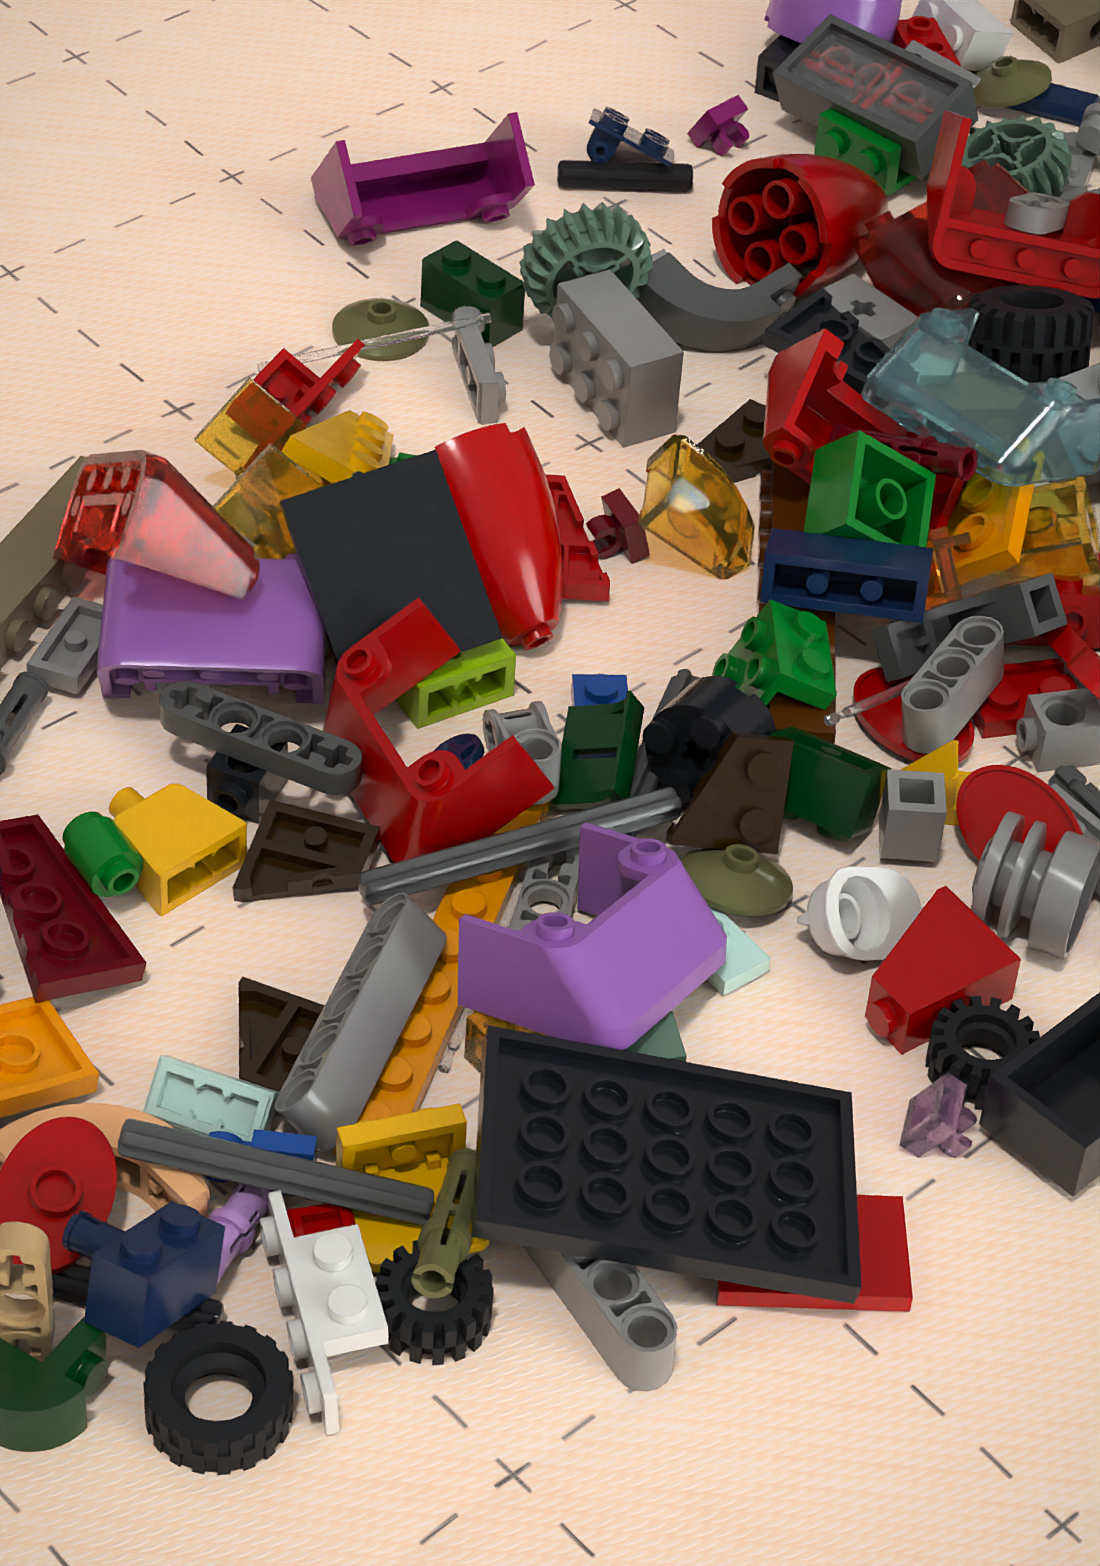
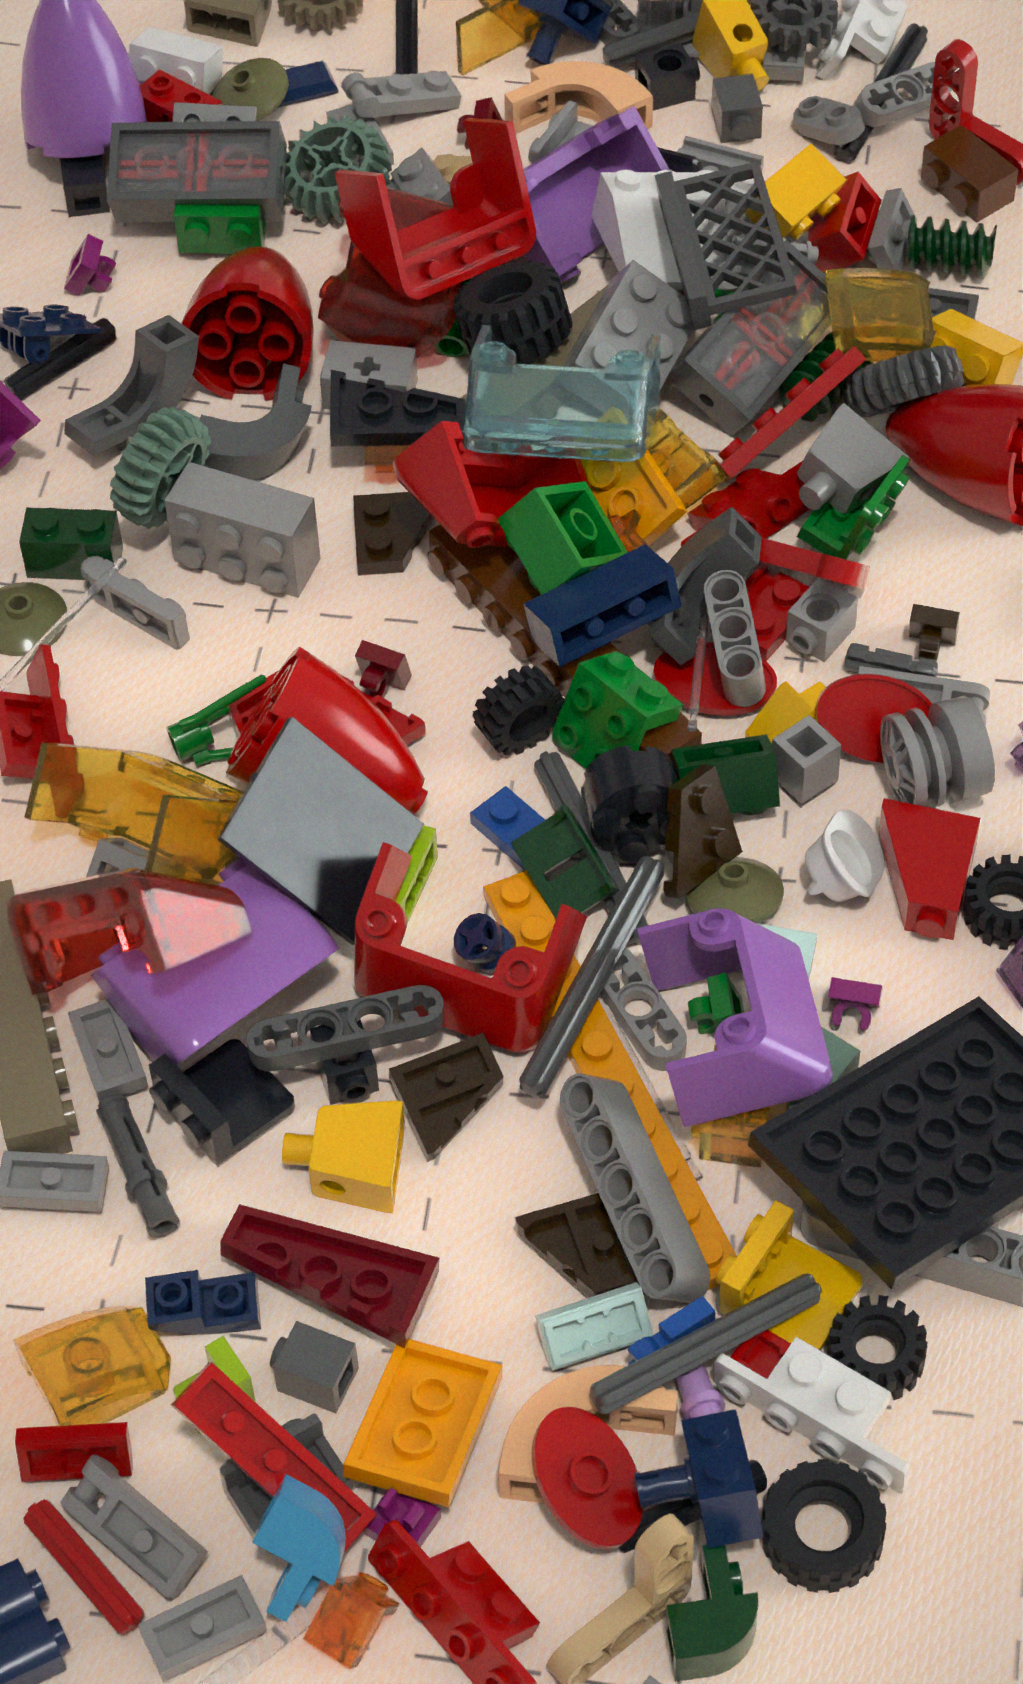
camera: 35 degrees left, 10 degrees up
(102, 854) = (329, 1201): green brick -> none
(110, 737) = (220, 1098): none -> black bracket
(342, 446) = (156, 751): yellow wing -> none
(436, 1261) = (862, 1301): olive pin -> none
(533, 732) = (520, 897): light grey piece -> none
(683, 209) = (157, 379): none -> dark grey arch
(697, 508) = (421, 617): clear yellow slope -> none
(698, 597) = (518, 710): none -> black tyre
(743, 1023) = (854, 995): none -> magenta tile
(924, 450) = (594, 462): dark red pin -> none
(1036, 213) = (442, 211): light grey beam -> none

